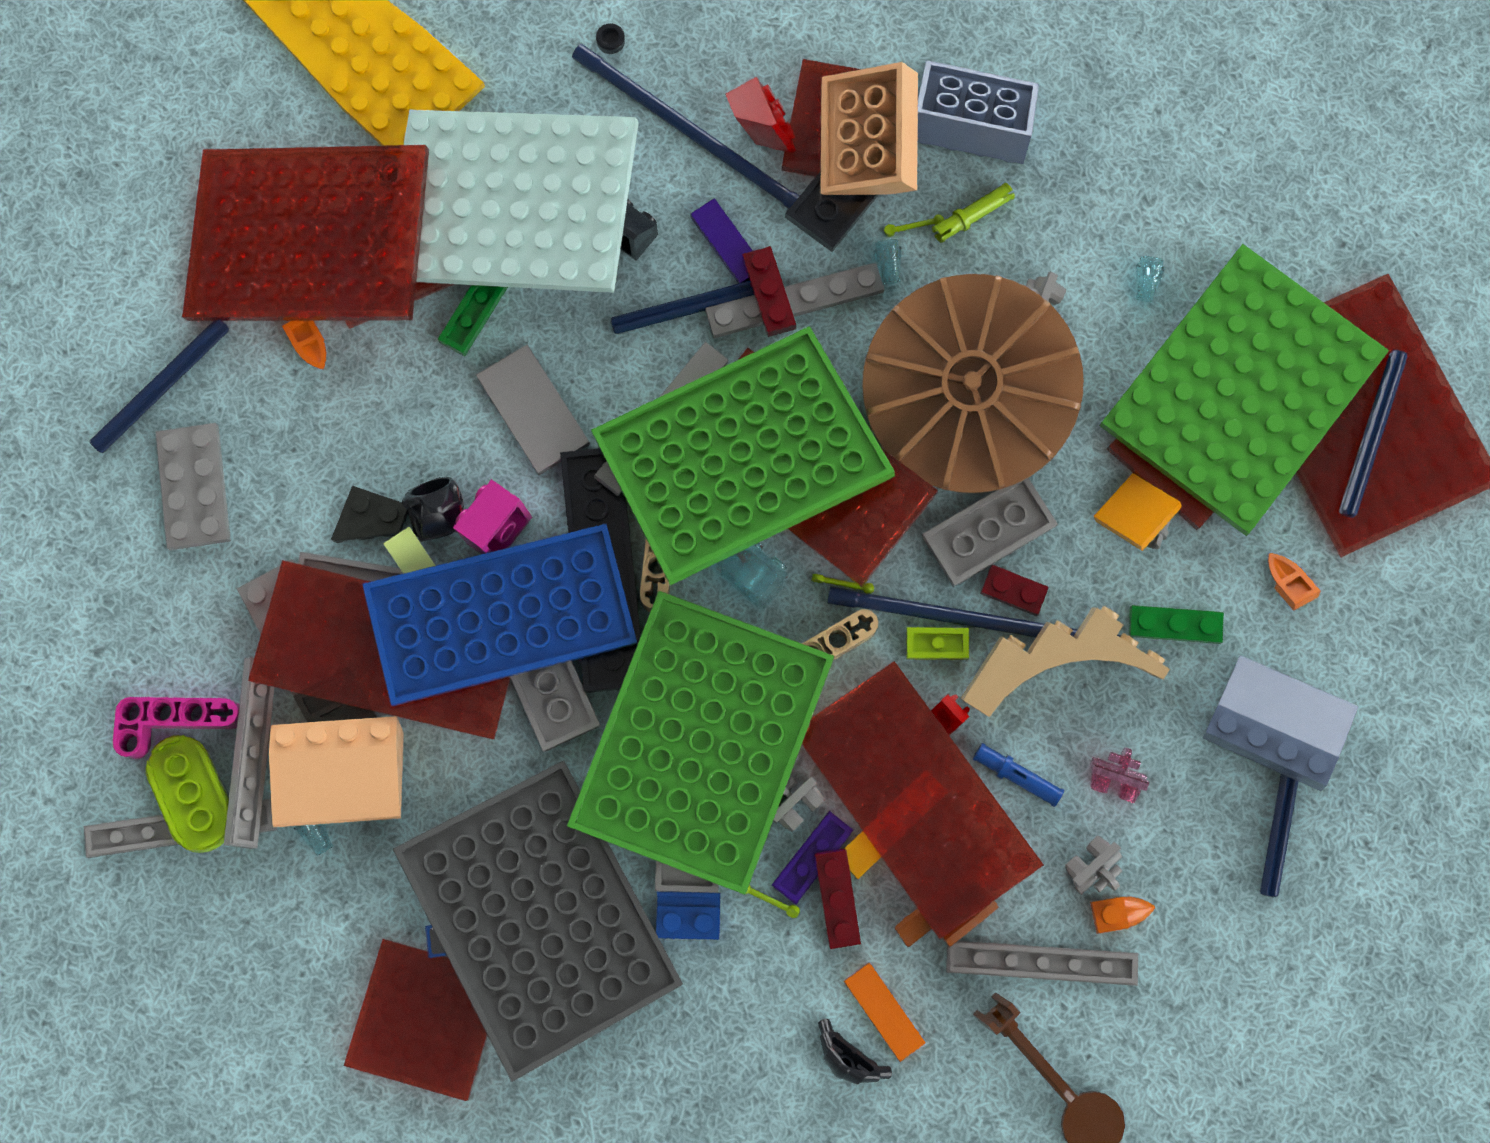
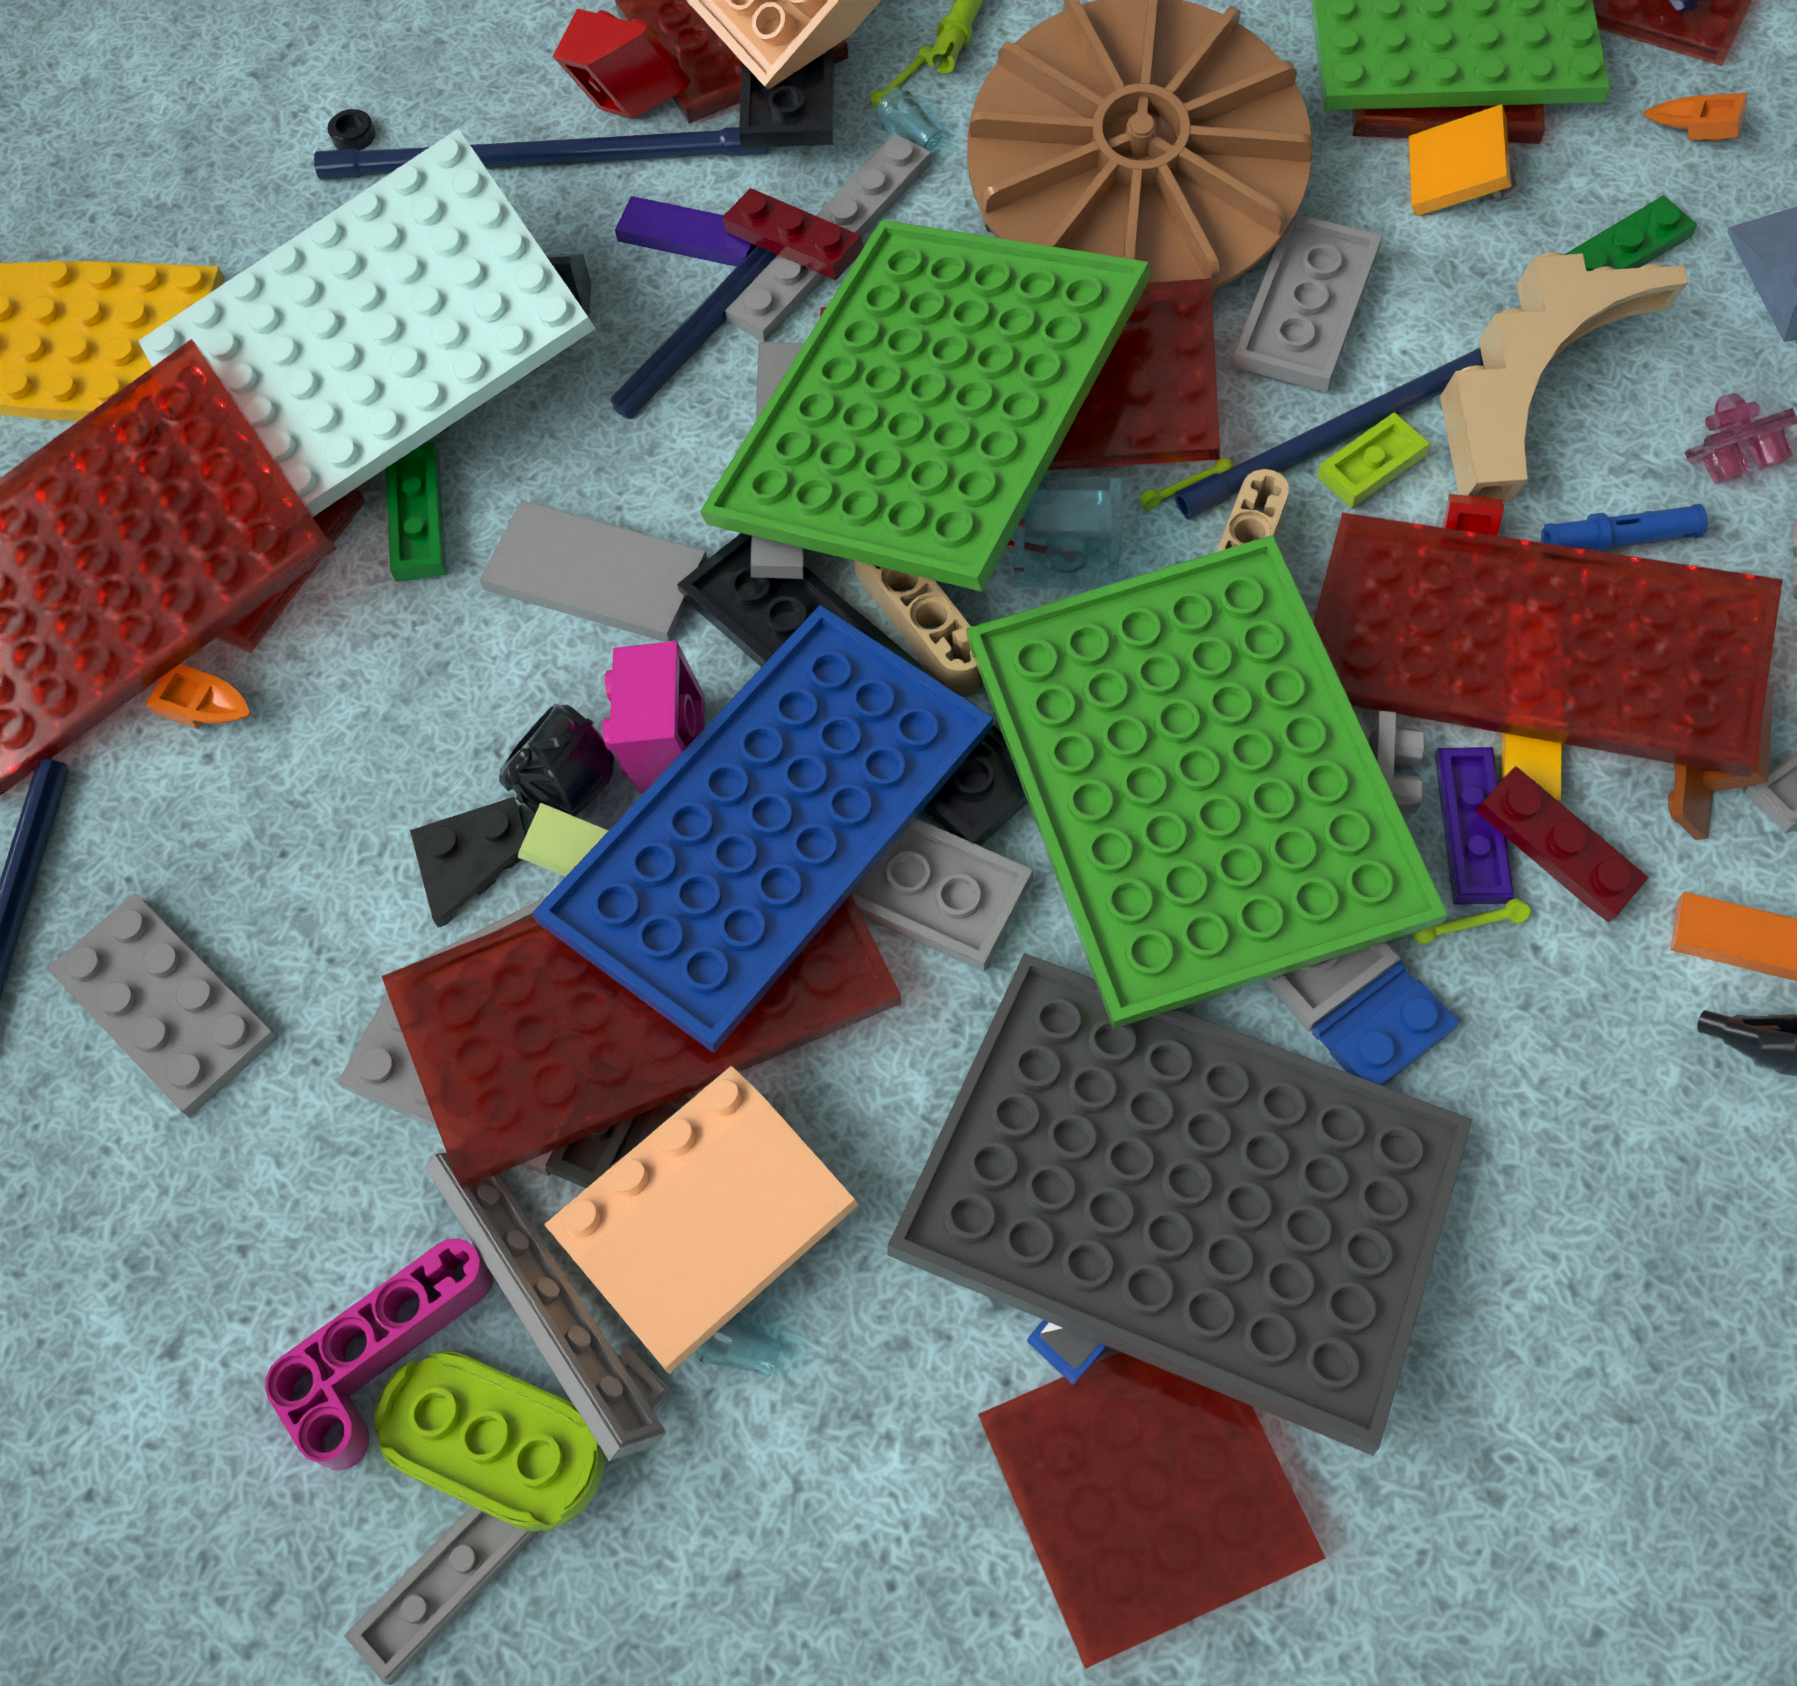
camera: 30 degrees left, 15 degrees down
(1014, 590) = (1402, 344): dark red plate -> none

